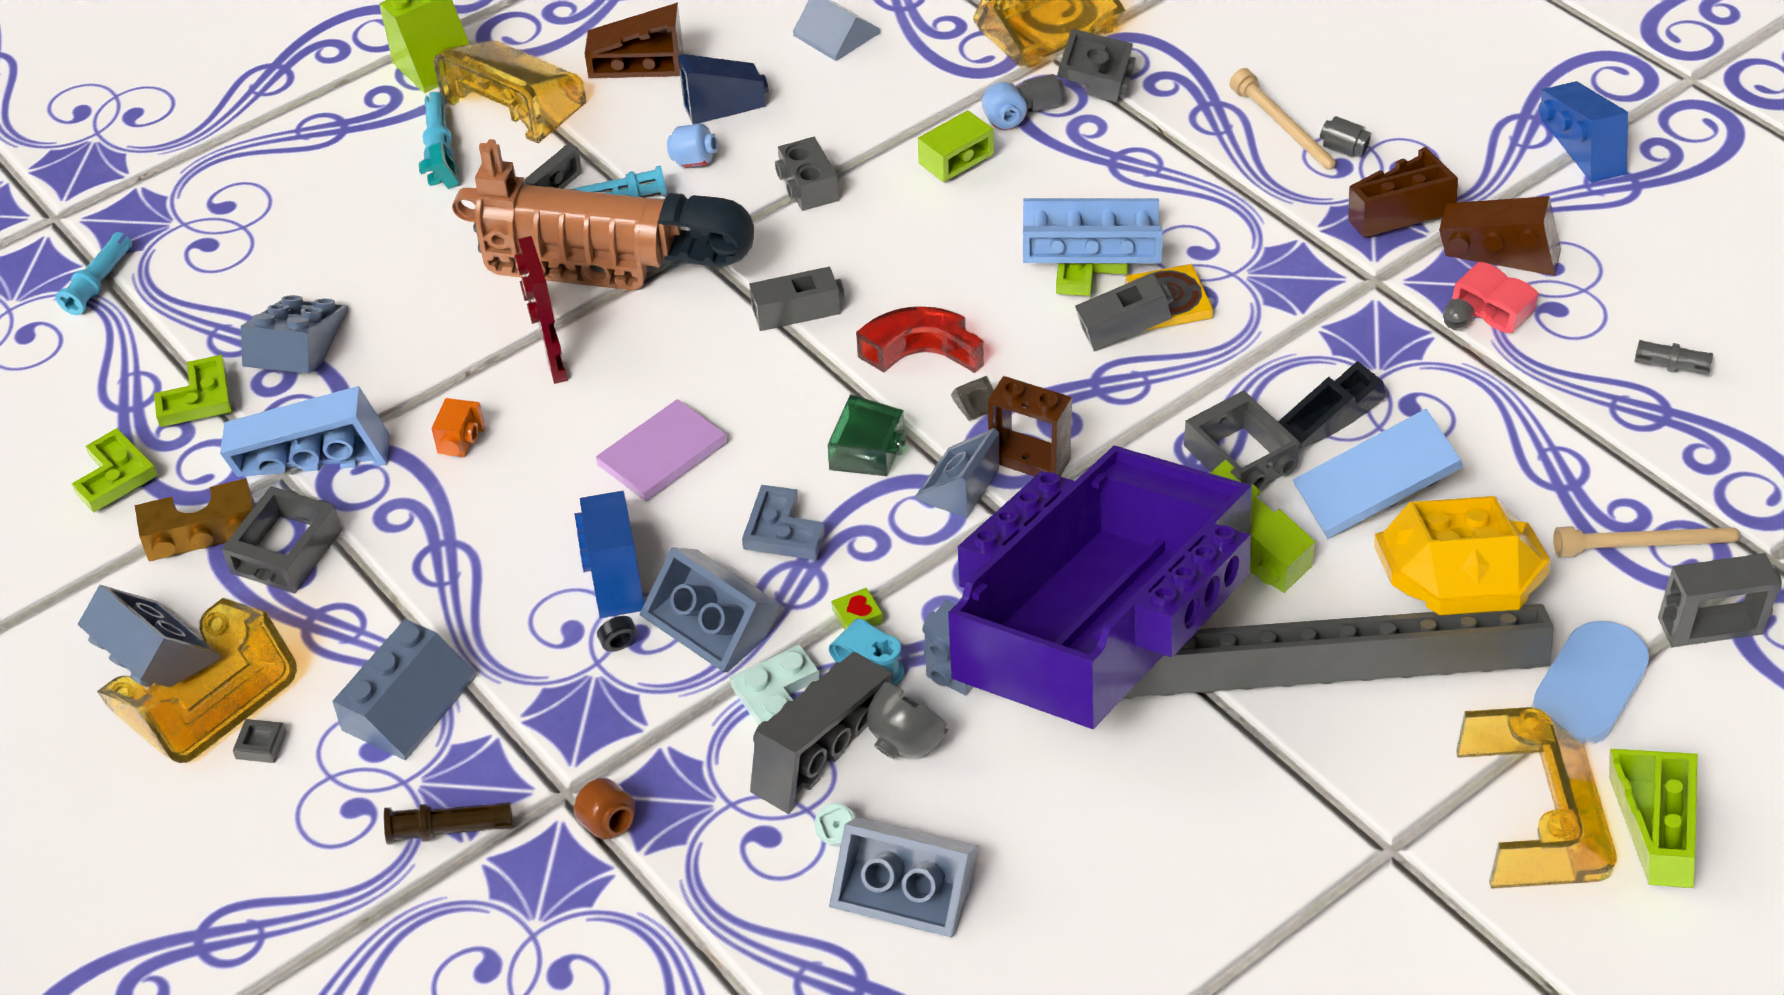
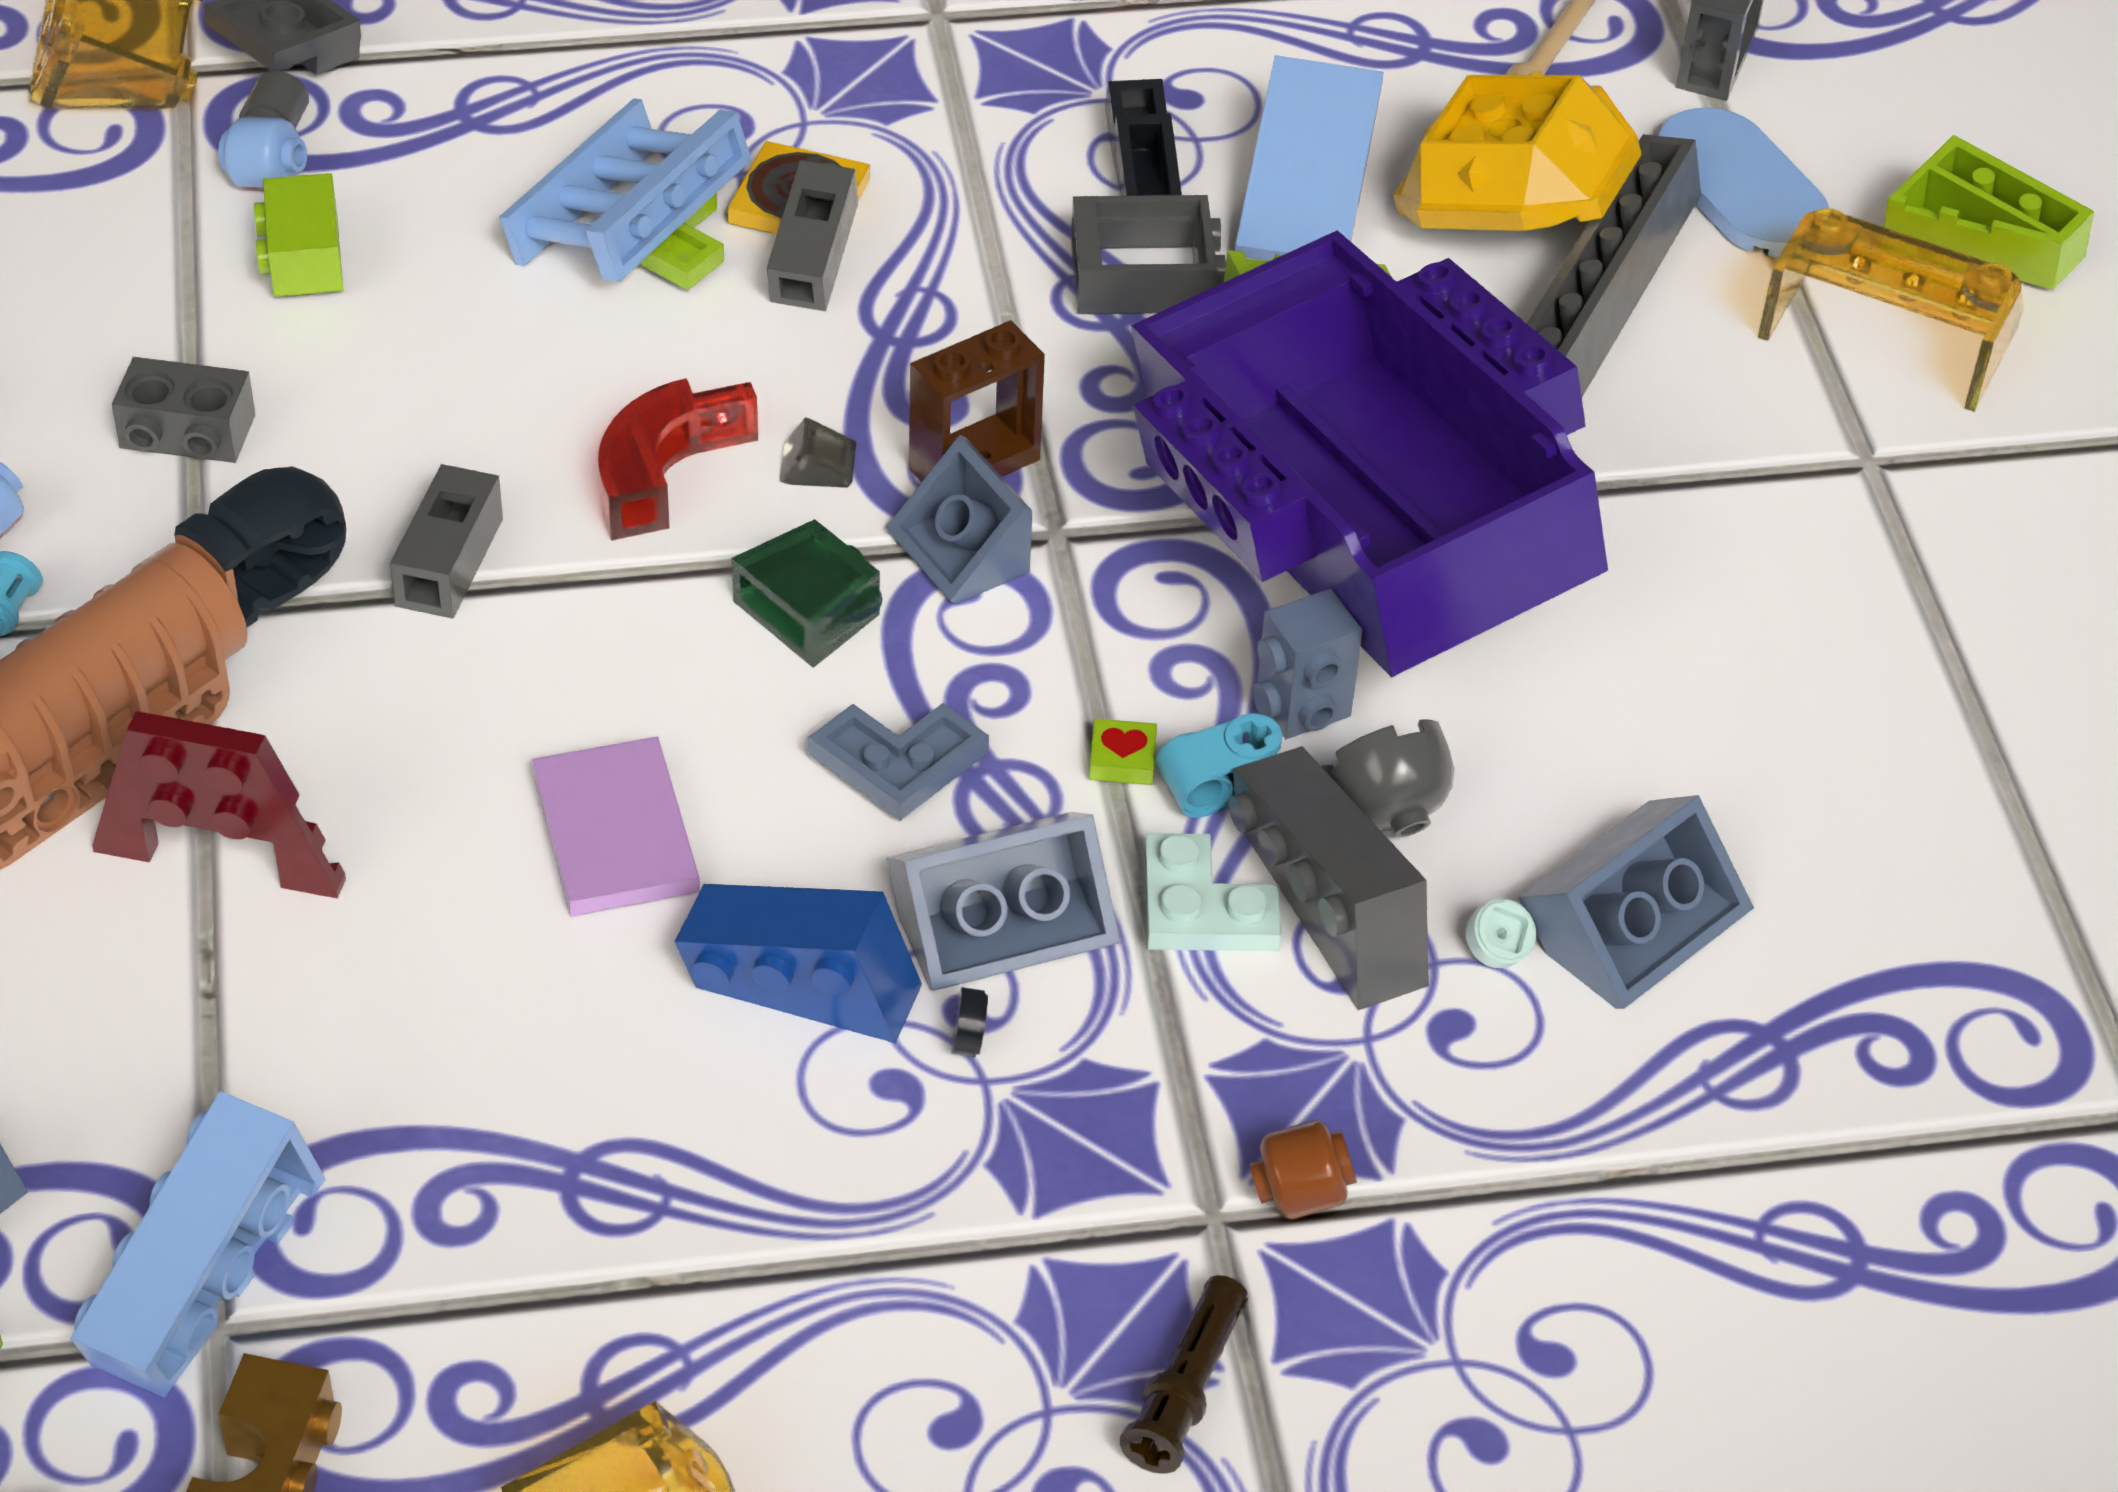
camera: 65 degrees left, 0 degrees up
(272, 567) = (438, 1420): dark grey window -> none
(403, 690) = (879, 1330): sand blue slope -> none
(457, 426) = (351, 1043): orange brick -> none

